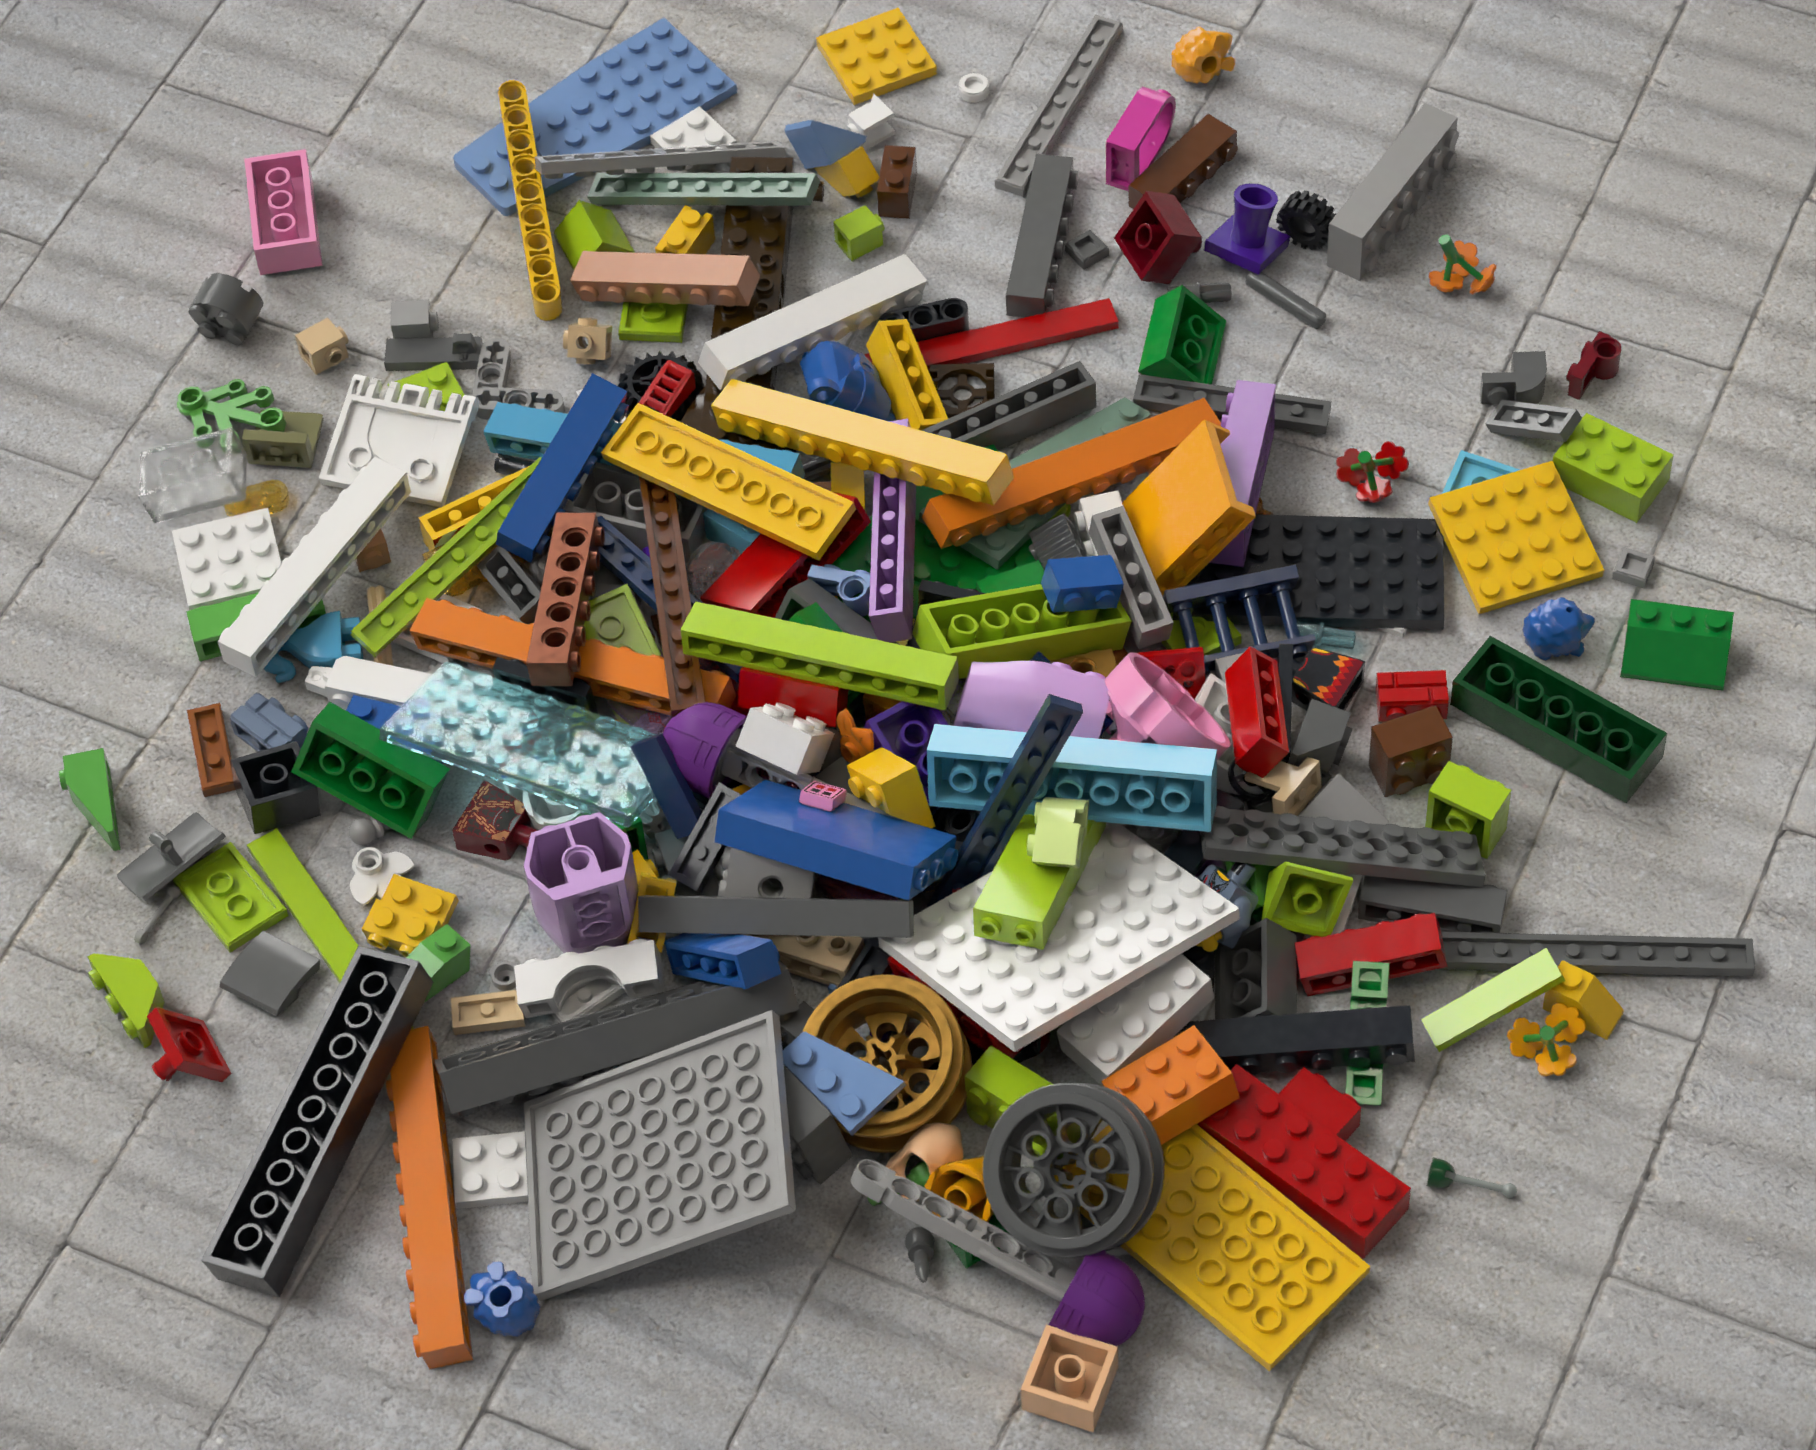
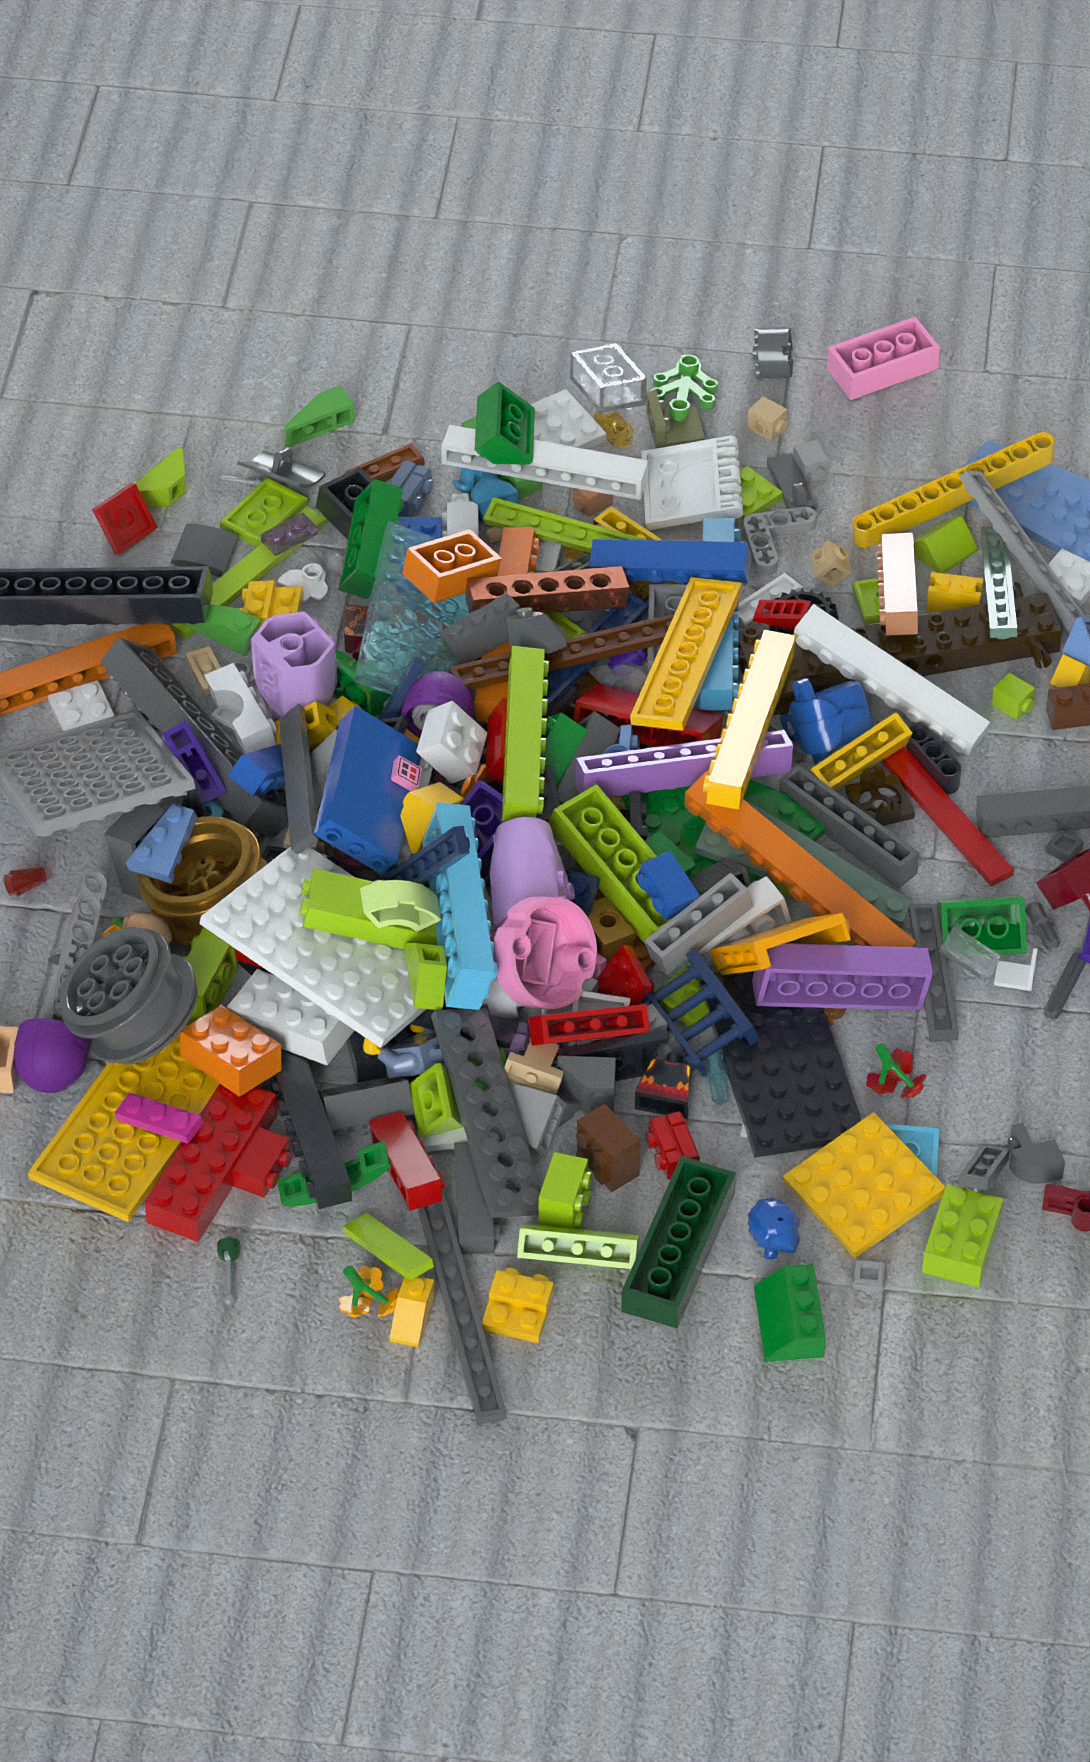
camera: 70 degrees right, 5 degrees down
(261, 581) = (504, 427): none -> green slope
(292, 870) = (289, 534): none -> plate
(493, 676) = (445, 564): none -> orange brick
(608, 671) = (479, 631): none -> dark grey brick
(651, 612) = (535, 631): none -> dark grey slope
(670, 1026) = (192, 757): none -> dark purple slope
(770, 1289) = (24, 880): none -> clear red cone
(1146, 839) = (426, 974): none -> lime slope
(1222, 363) = (969, 953): none -> clear plate
(1241, 1194) = (158, 1118): none -> dark pink plate
(1261, 330) = (1016, 975): none -> white bracket
(1538, 815) = (577, 1246): none -> lime brick
(1595, 896) = (518, 1305): none -> yellow plate

